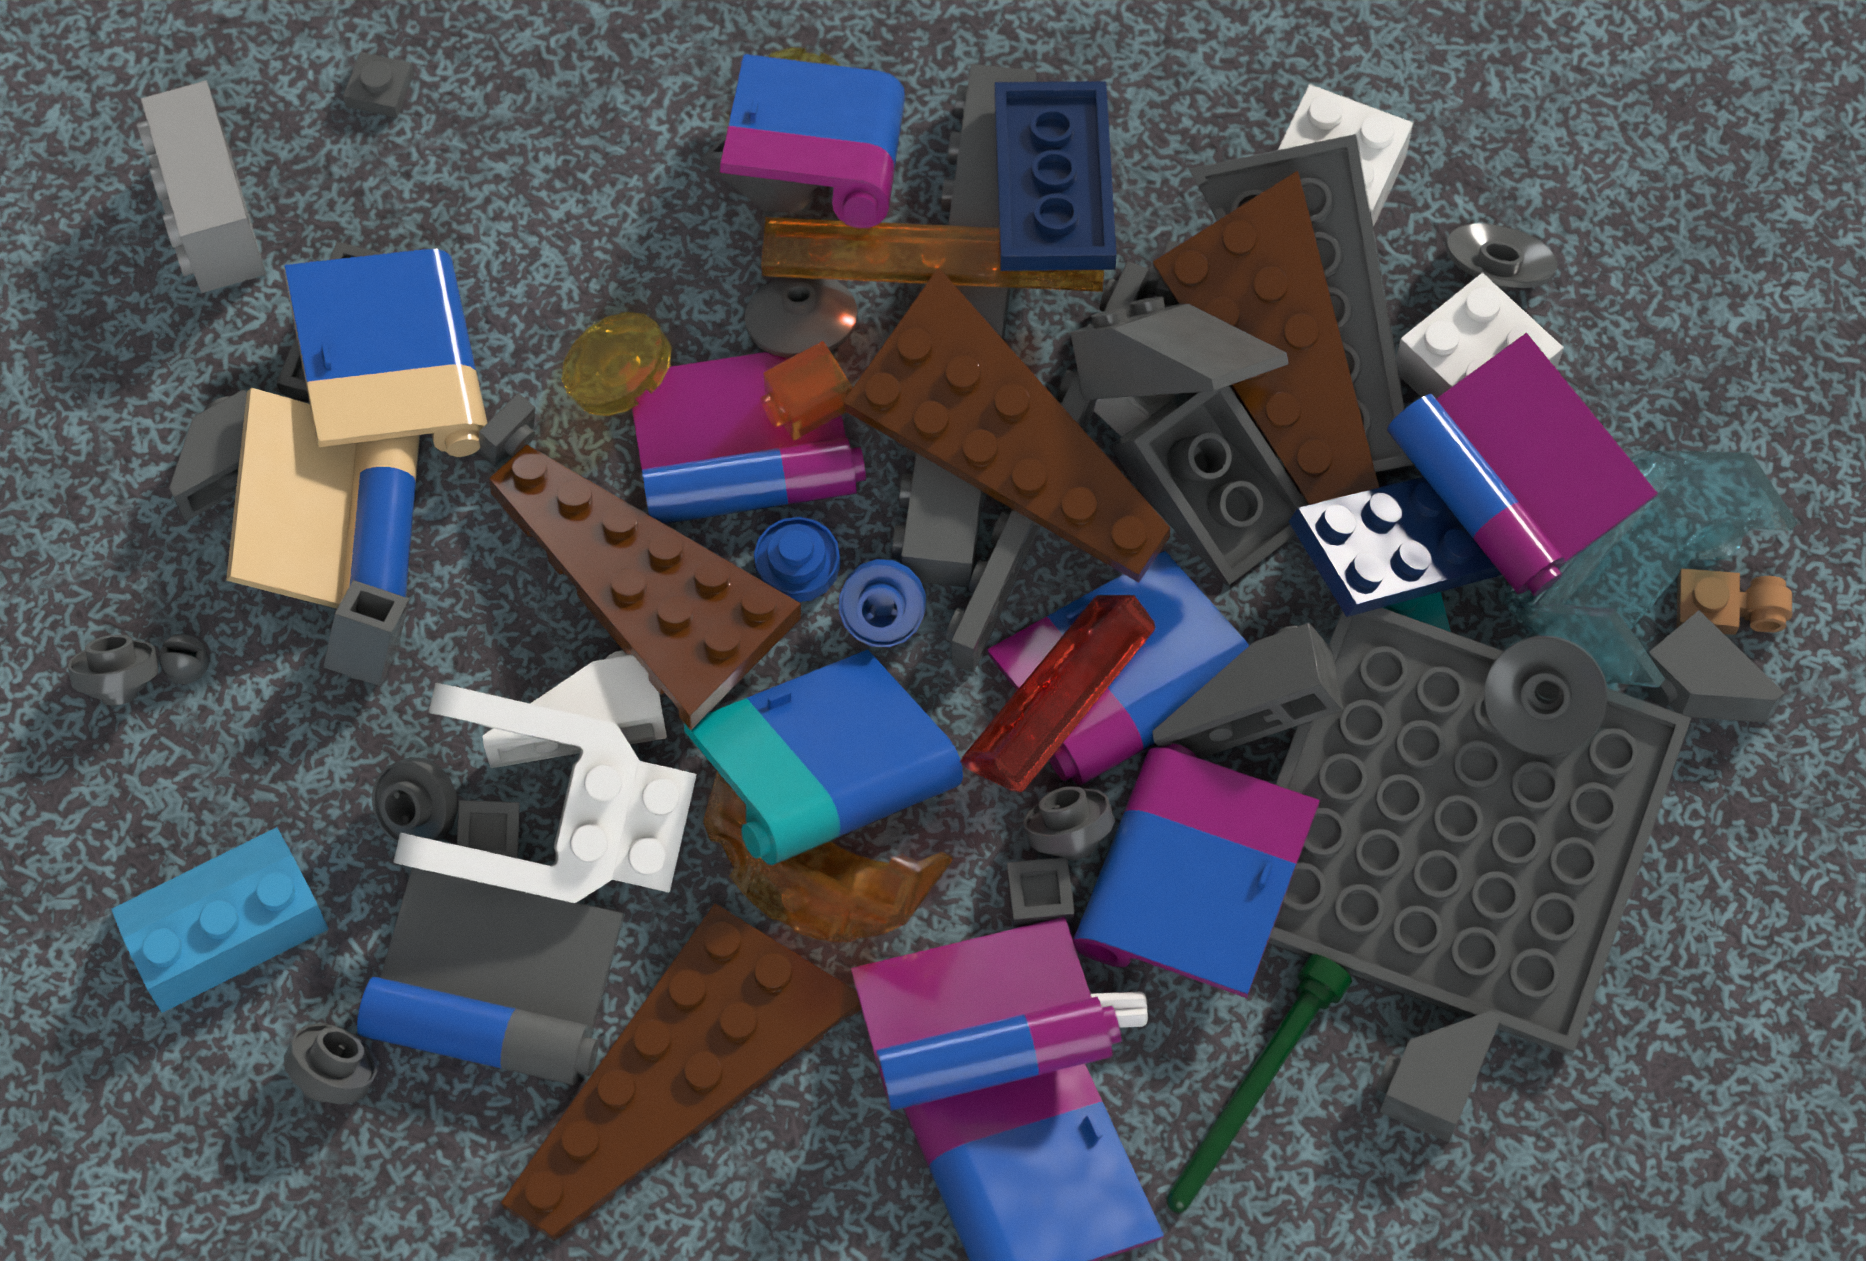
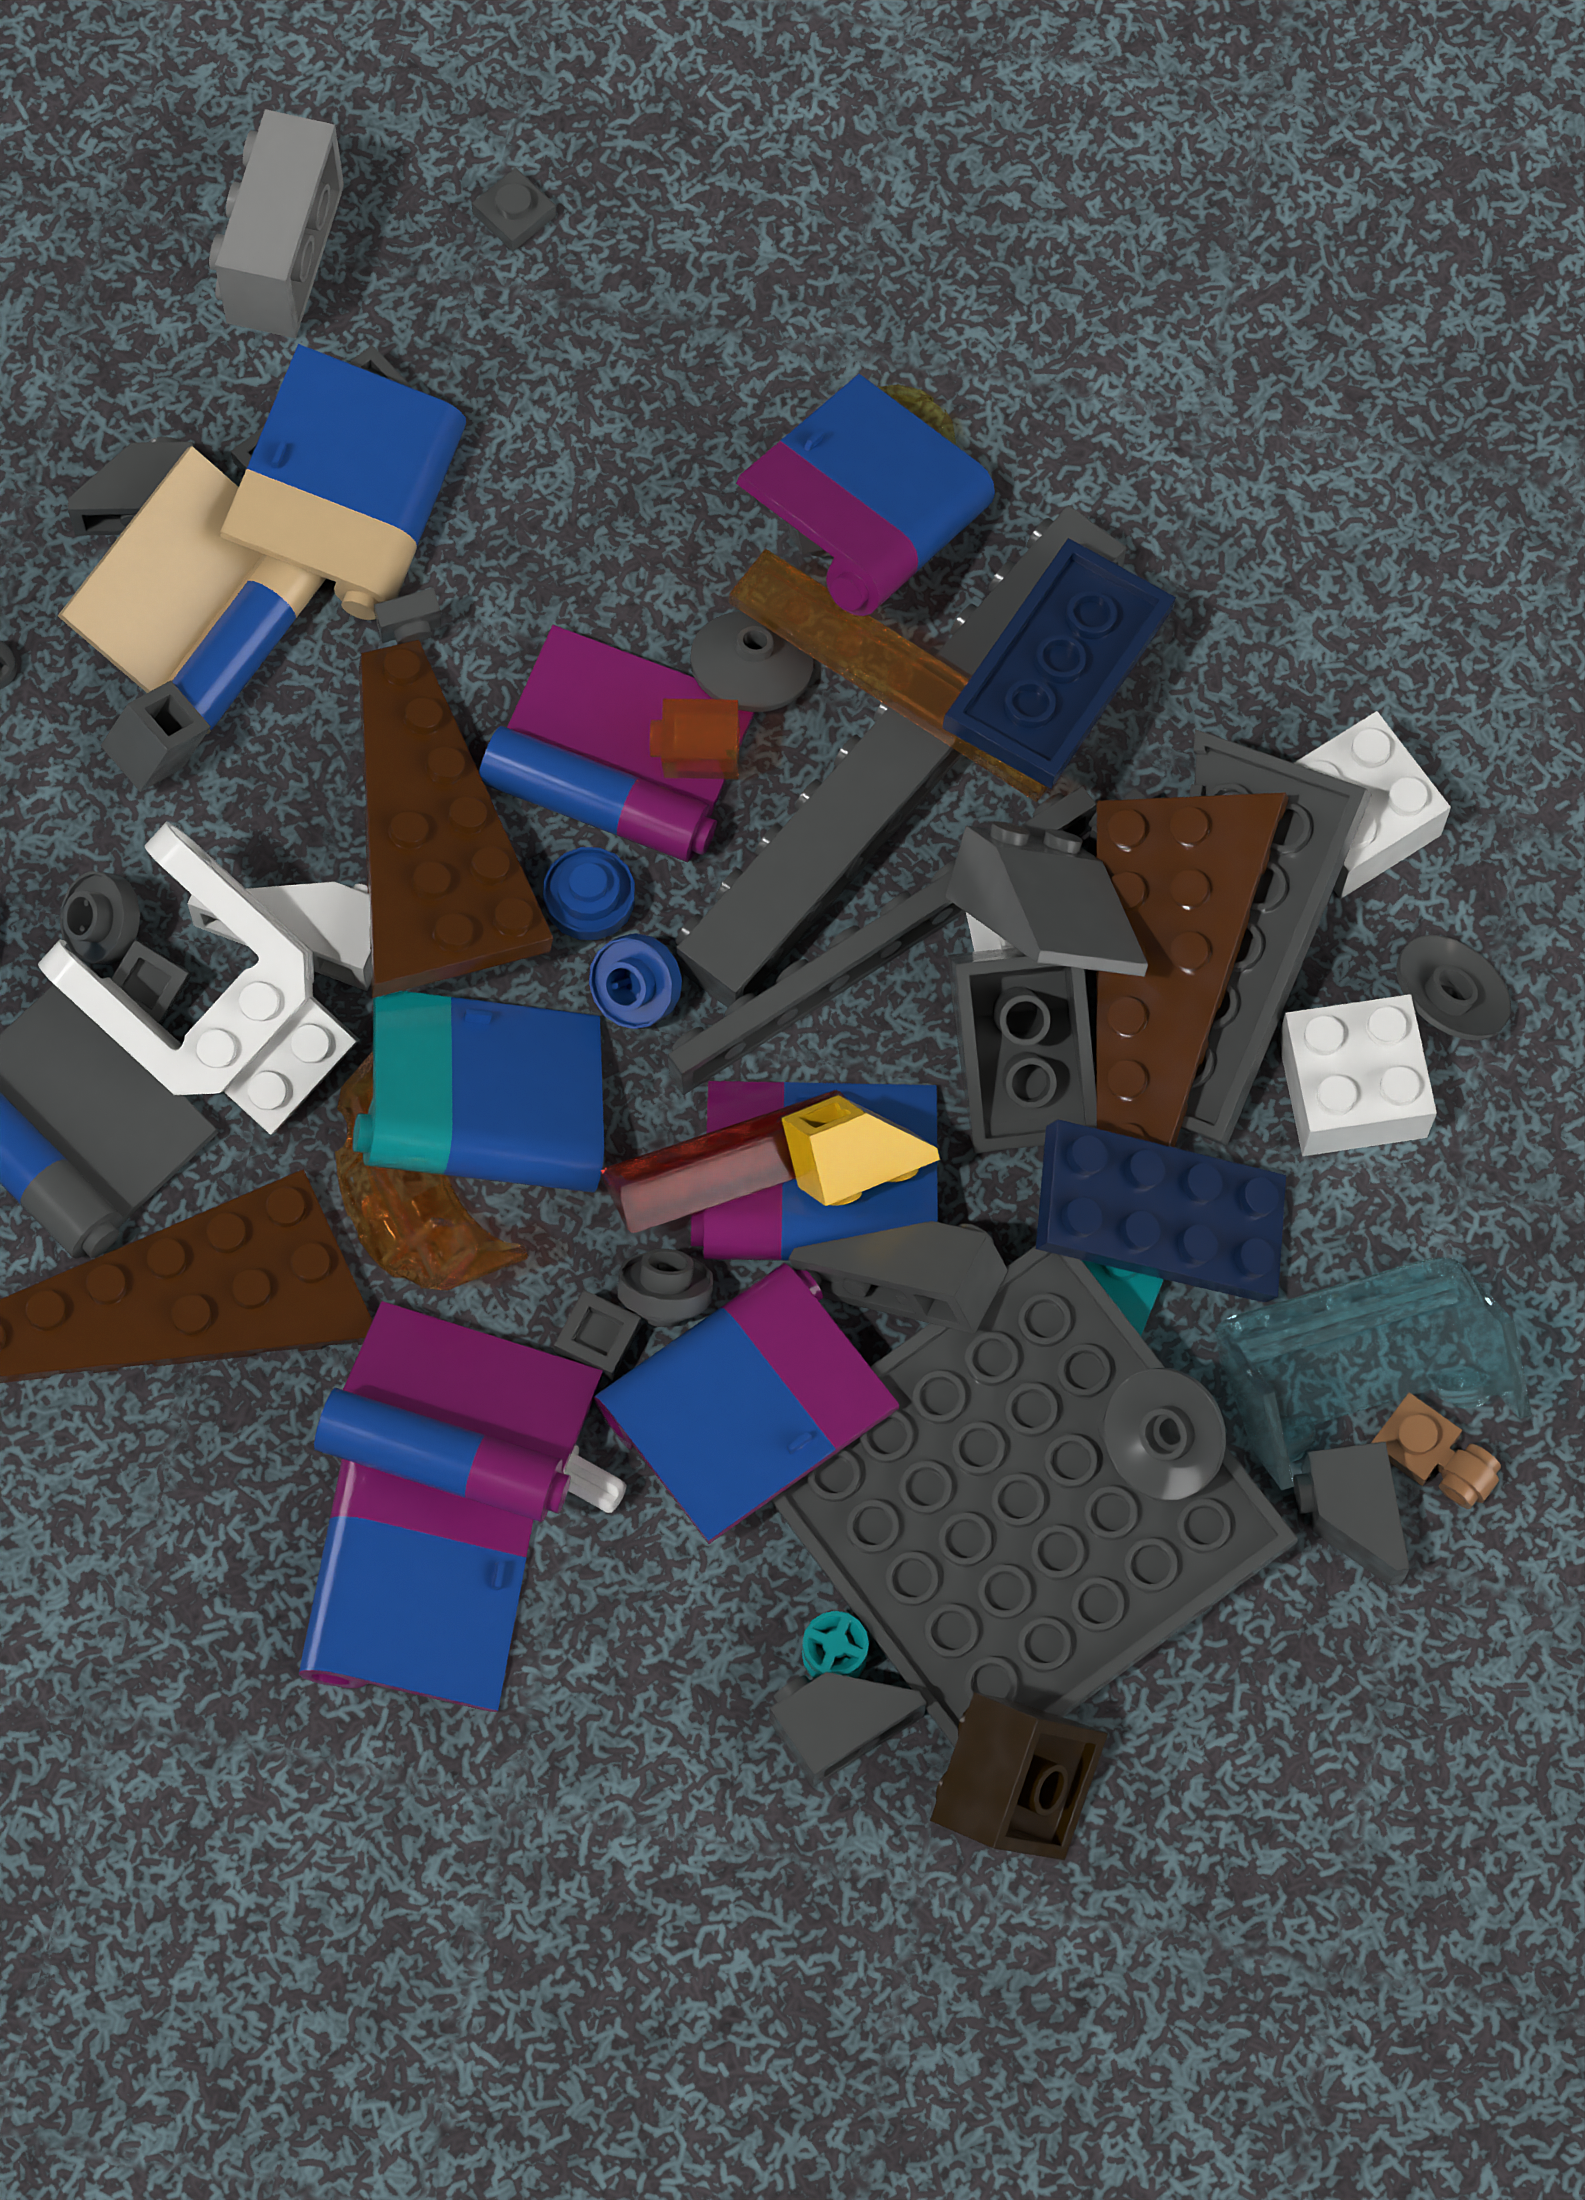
camera: 30 degrees right, 5 degrees up
(616, 363) = (547, 609): clear yellow tile -> none
(980, 413) = (836, 855): reddish brown wing -> none
(1150, 627) = (849, 1149): none -> yellow slope
(1319, 986) = (788, 1575): dark green piece -> none
(1396, 1008) = (839, 1636): none -> teal wheel
(1522, 464) = (1308, 1202): magenta door -> none
(1609, 1030) = (1017, 1777): none -> dark brown slope

